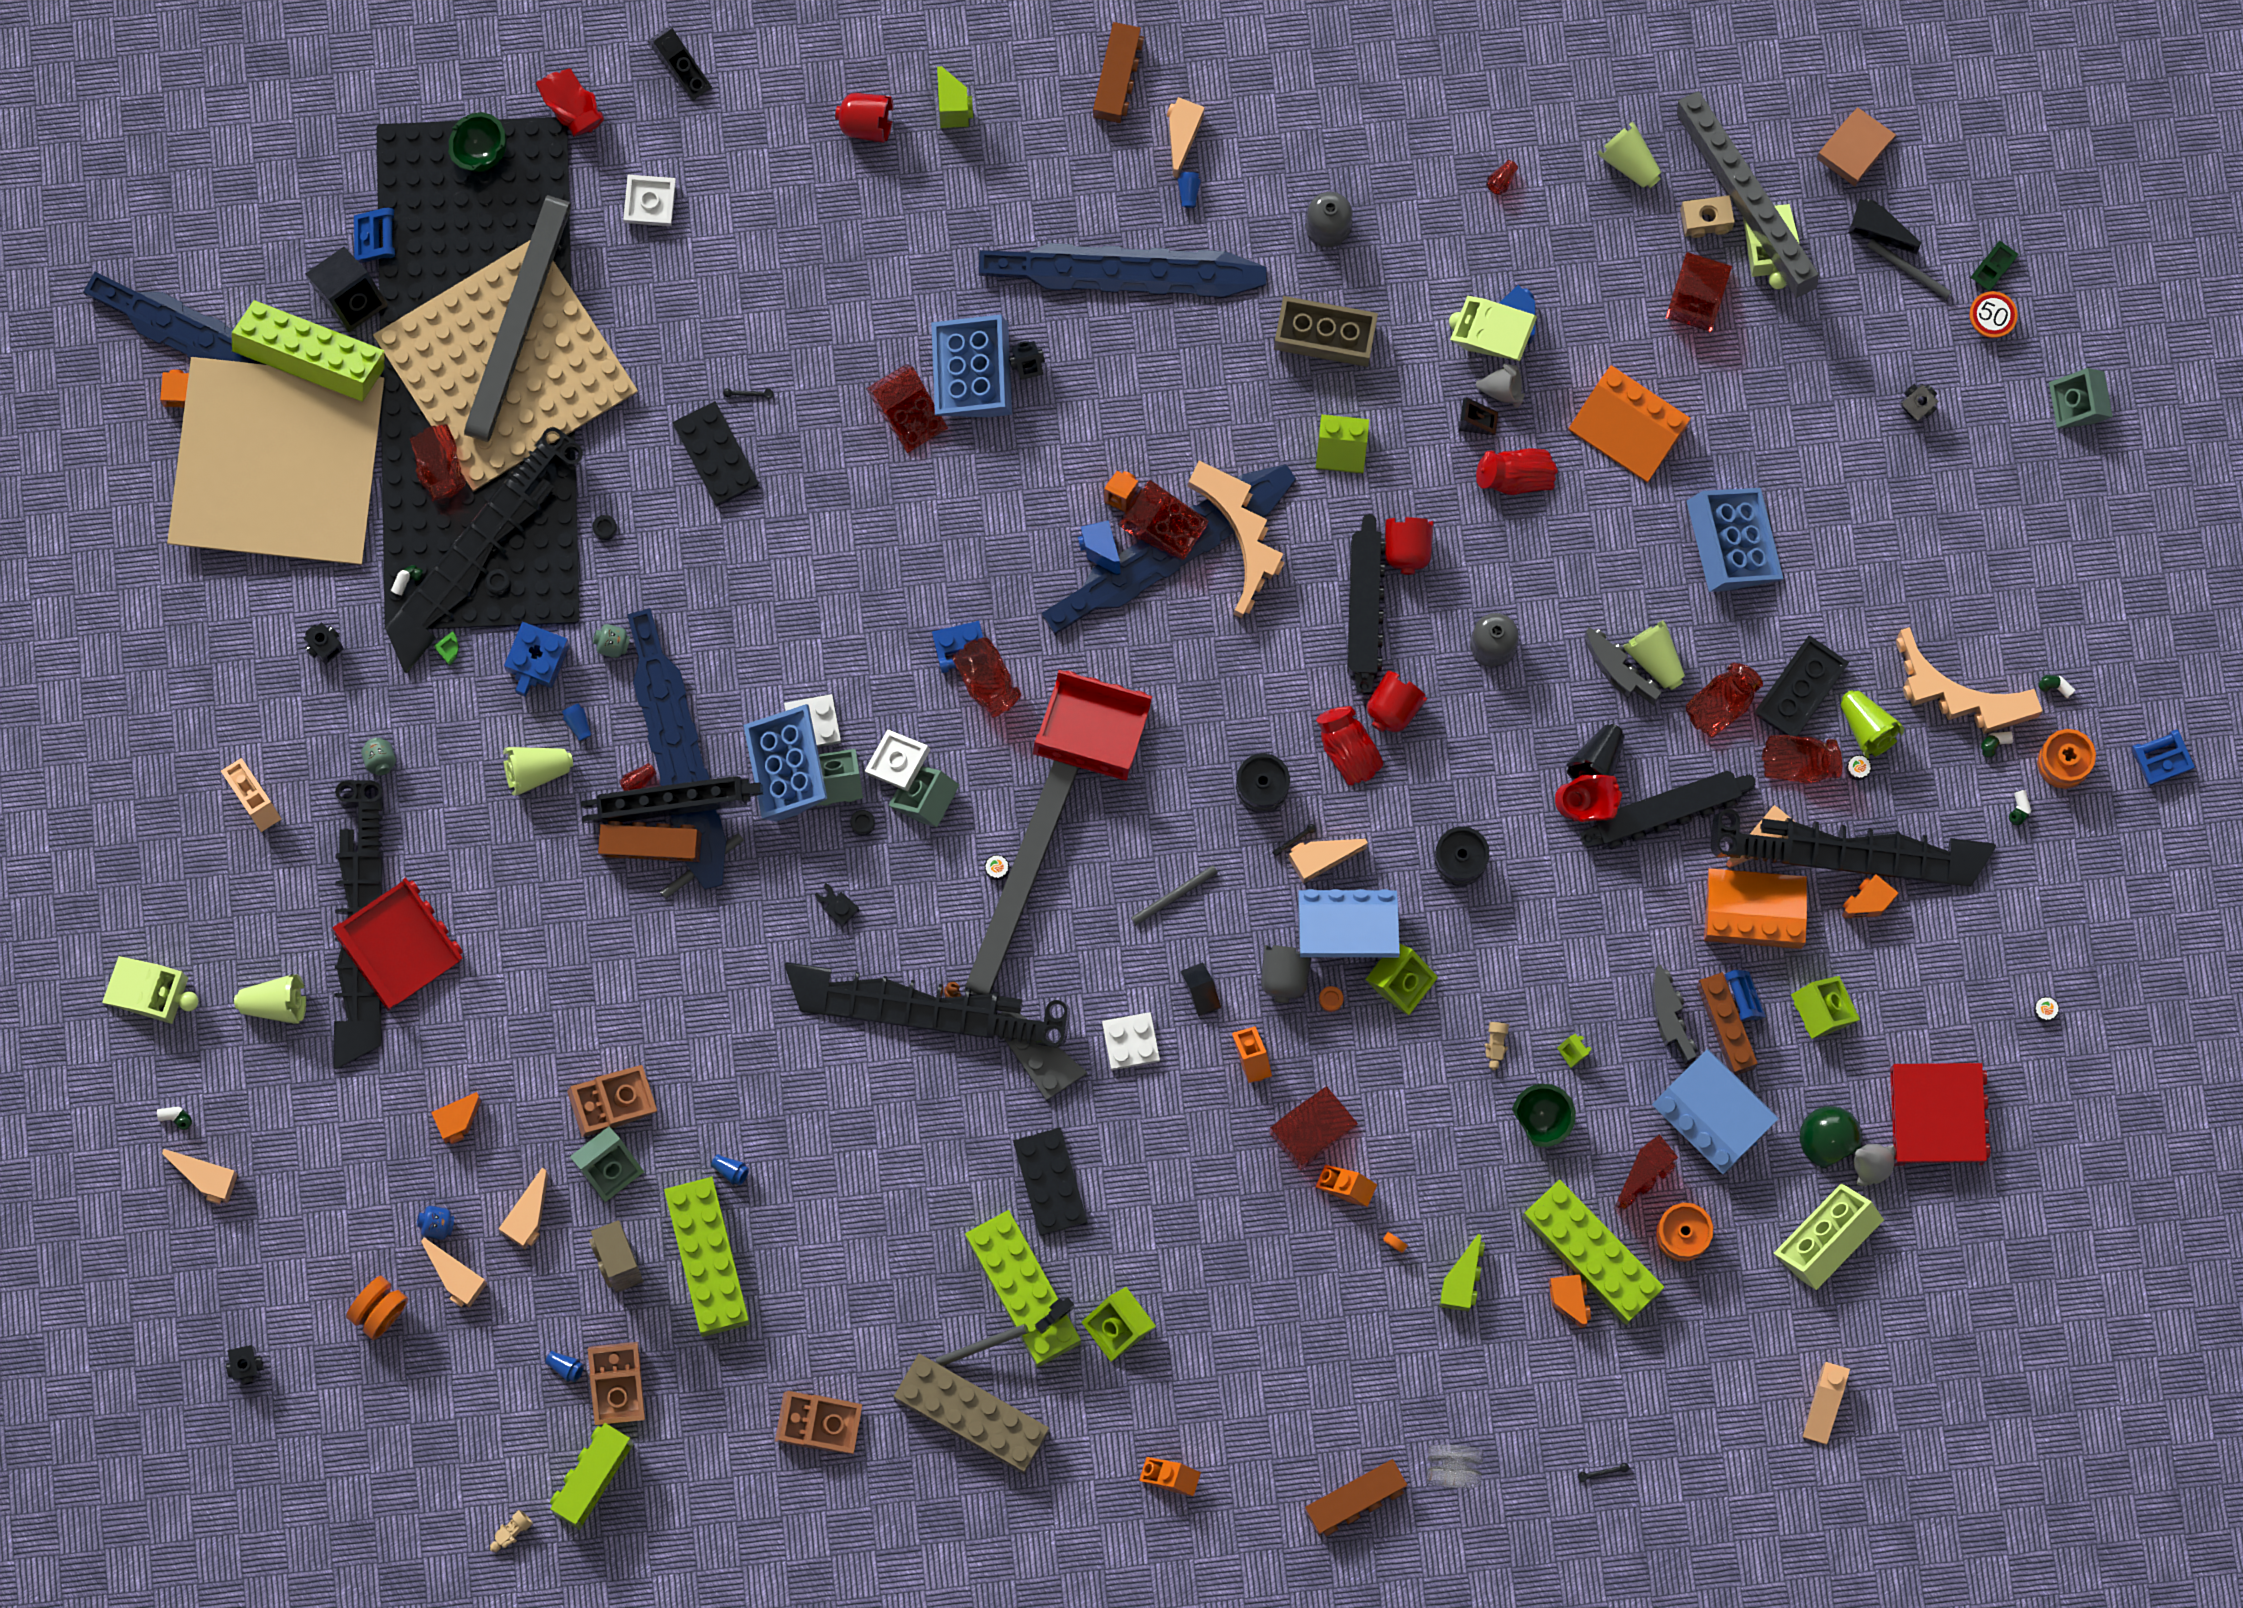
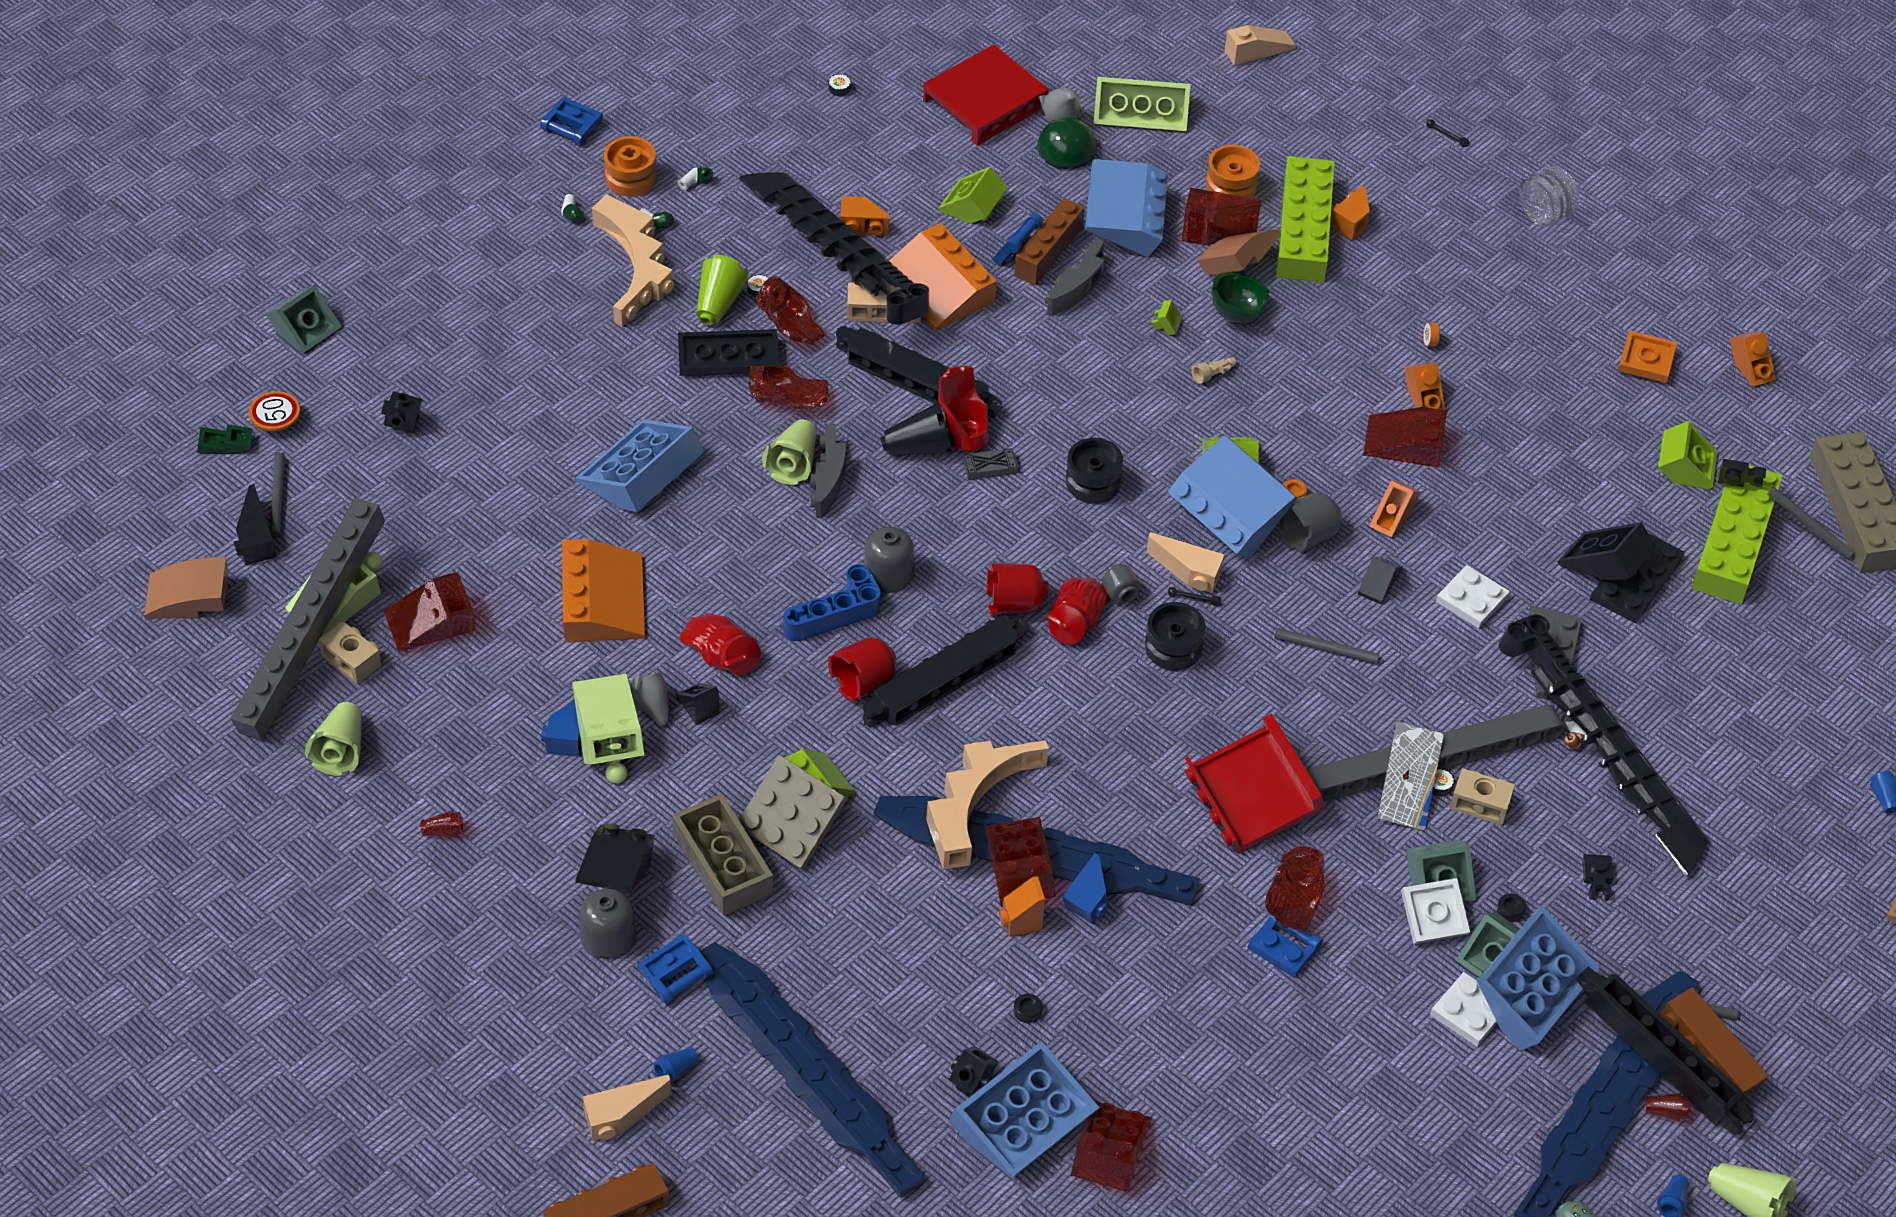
camera: 130 degrees left, 25 degrees down
(967, 868) = (1482, 796): none -> tan brick
(1012, 840) = (1410, 776): none -> light grey sticker
(1050, 441) = (1027, 1008): none -> black tile
(1079, 1162) = (1610, 552): none -> black slope
(1239, 1394) = (1647, 356): none -> orange plate
(1269, 241) = (670, 962): none -> blue plate
(1322, 398) = (791, 812): none -> dark tan plate
(1342, 788) = (1121, 583): none -> dark grey head
(1356, 1497) = (1634, 246): dark orange brick -> none
(1370, 252) = (616, 858): none -> black slope
(1458, 1285) = (1410, 281): lime slope -> none
(1485, 568) = (835, 610): none -> blue beam
(1536, 796) = (990, 463): none -> tile
(1595, 1159) = (1237, 252): none -> nougat slope

